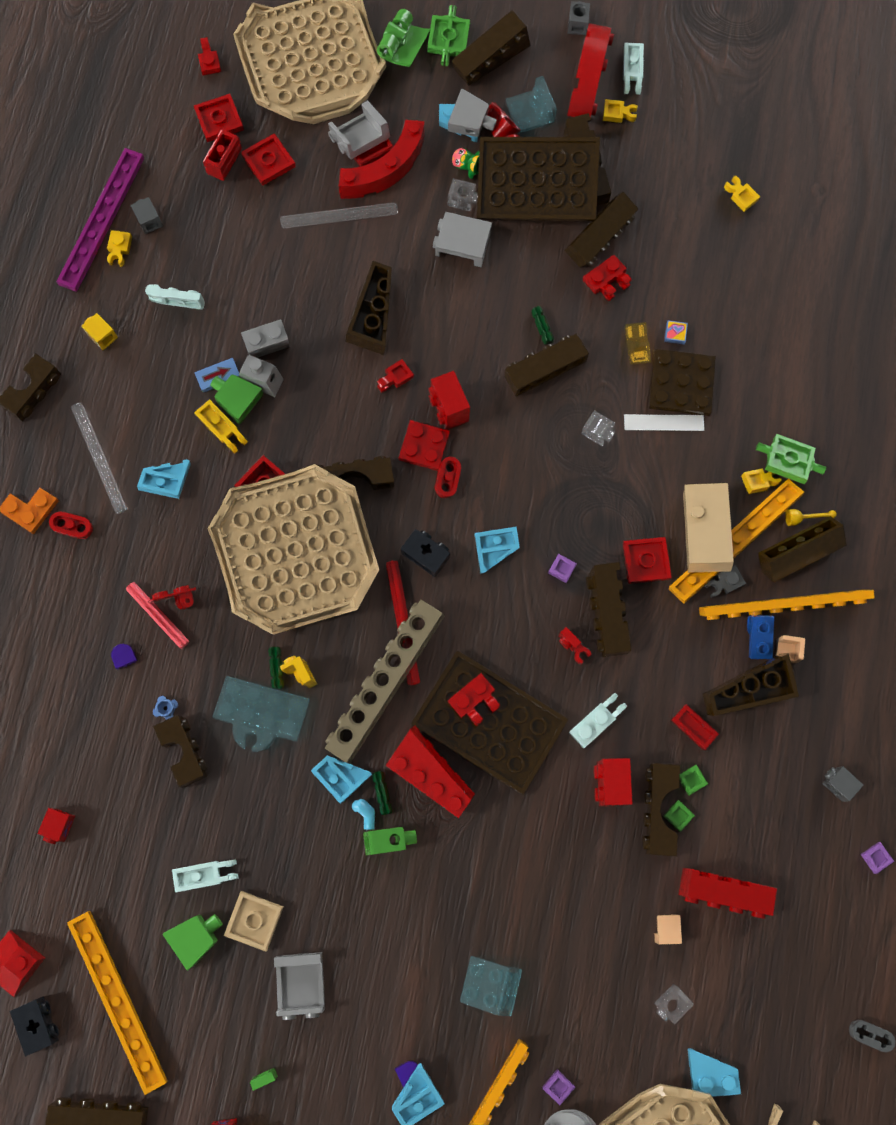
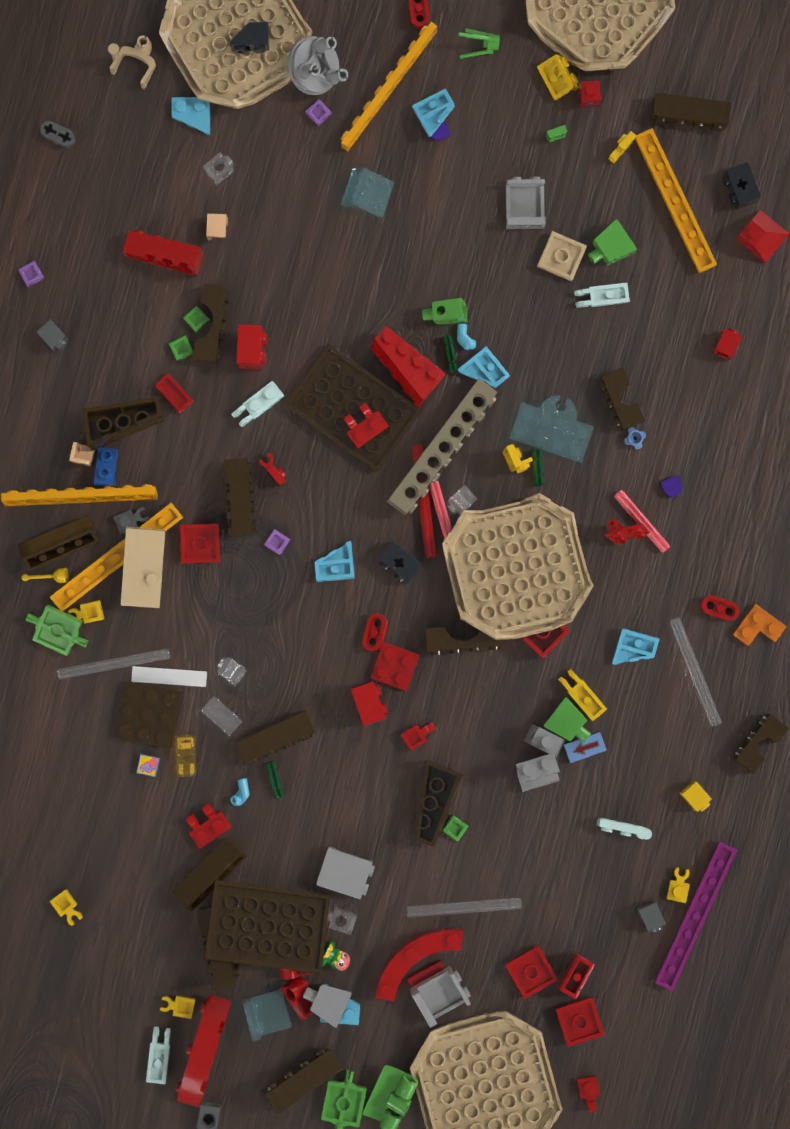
camera: 175 degrees left, 10 degrees up
(179, 1072) = (624, 143): none -> yellow plate
(351, 289) = (455, 828): none -> bright green tile
(360, 624) = (461, 500): none -> clear brick
(382, 611) = (440, 508): none -> coral axle
(575, 309) = (242, 794): none -> medium azure arm
(604, 383) = (221, 715): none -> clear plate
(724, 430) = (113, 663): none -> clear axle

